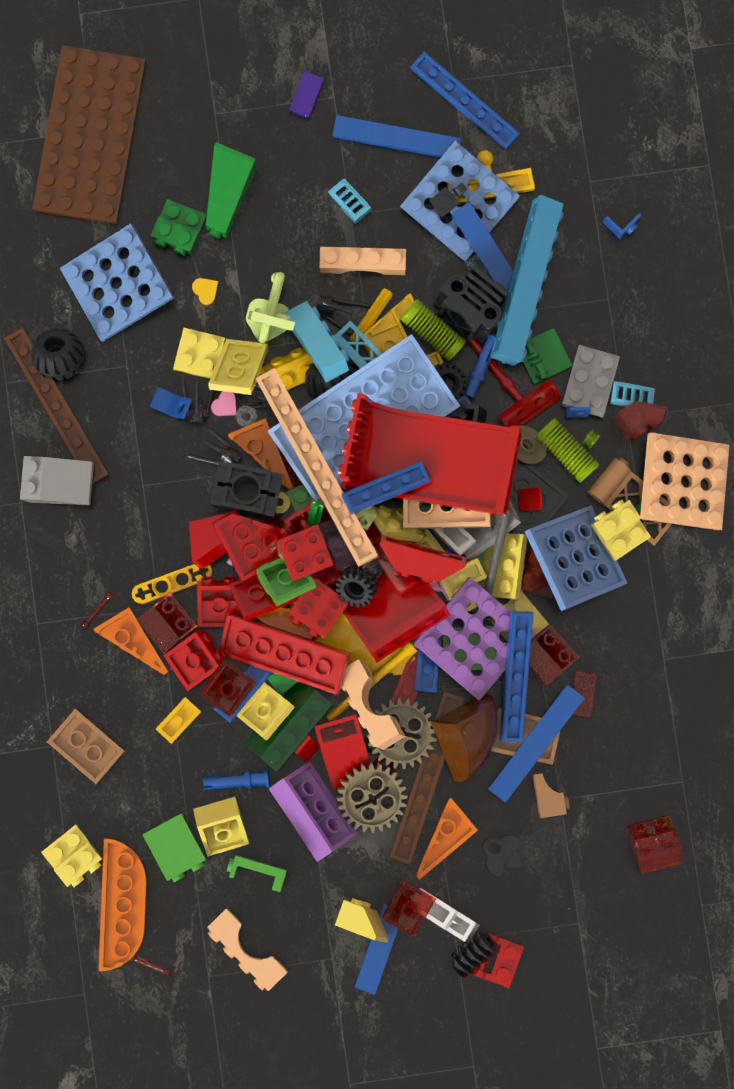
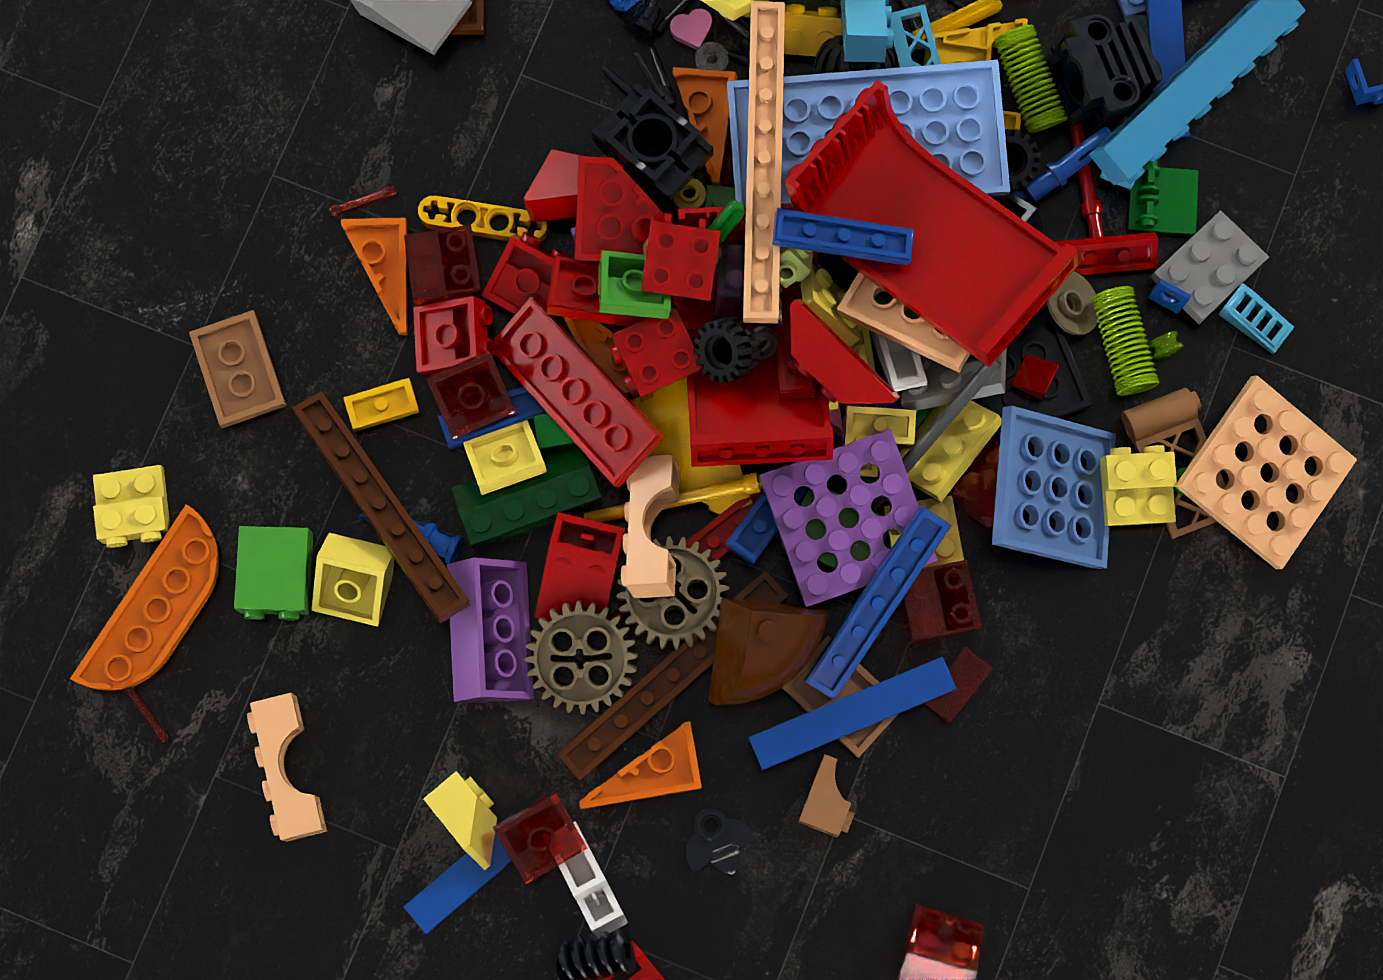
camera: 35 degrees right, 5 degrees down
(213, 778) = (381, 507): none -> reddish brown plate
(278, 872) = (390, 689): bright green panel -> none
(307, 748) = (531, 541): red slope -> none
(637, 417) = (1251, 349): clear red slope -> none

